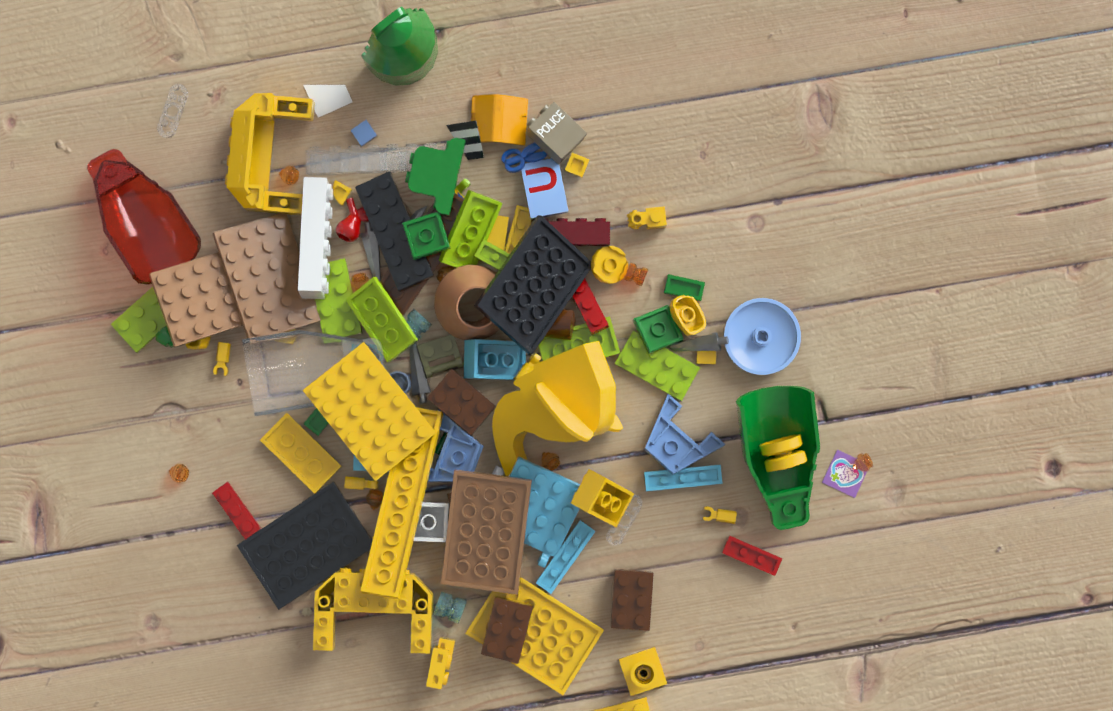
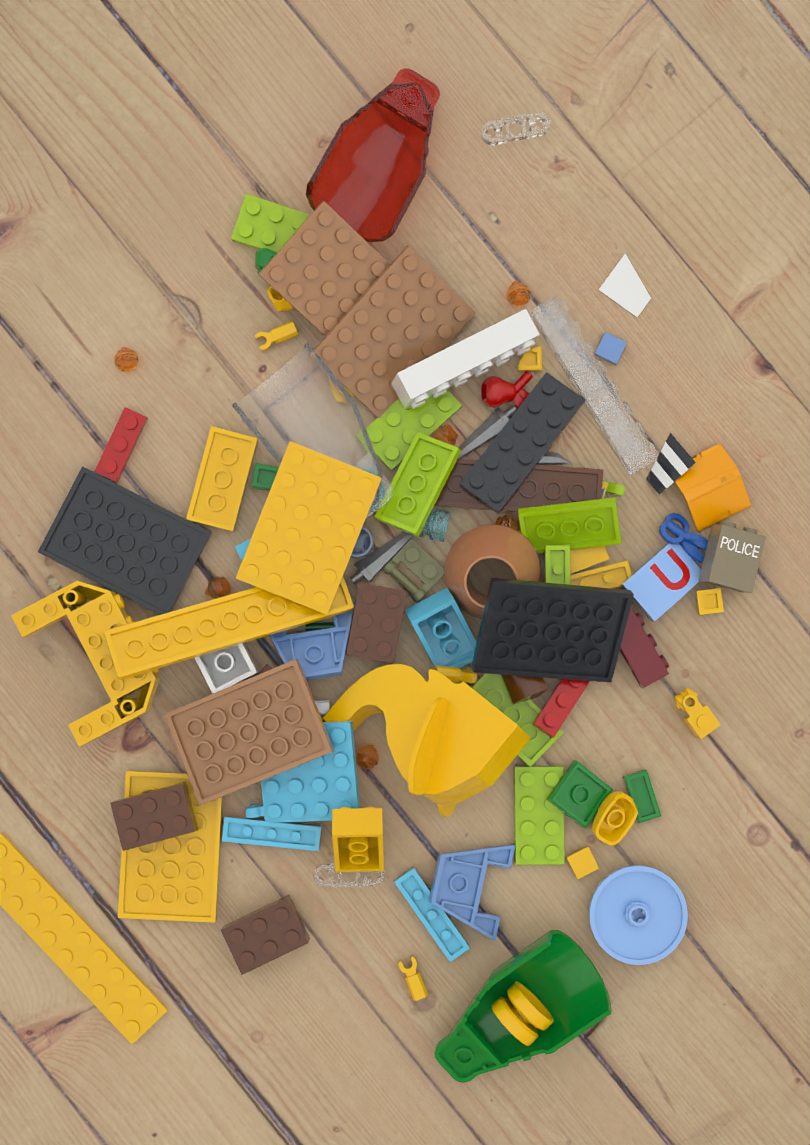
camera: 60 degrees right, 0 degrees up
(252, 151) = (523, 237): yellow wedge -> none
(359, 483) = (225, 562): yellow bar -> none
(402, 47) = (732, 333): green windscreen -> none
(426, 235) = (538, 480): green tile -> none
(436, 173) = (613, 452): green brick -> none
(440, 662) = (76, 763): yellow piece -> none
(450, 607) = (144, 738): clear light blue wheel -> none
(609, 264) = (620, 699): yellow tile -> none
(636, 274) = (626, 737): clear orange wheel -> none
(646, 660) = (202, 981): yellow plant -> none
(704, 343) = (594, 855): flat silver bar -> none
(752, 555) = (389, 1039): red plate -> none
(842, 474) = (538, 1092): sticker -> none
(863, 462) = (561, 1105): clear orange plate -> none

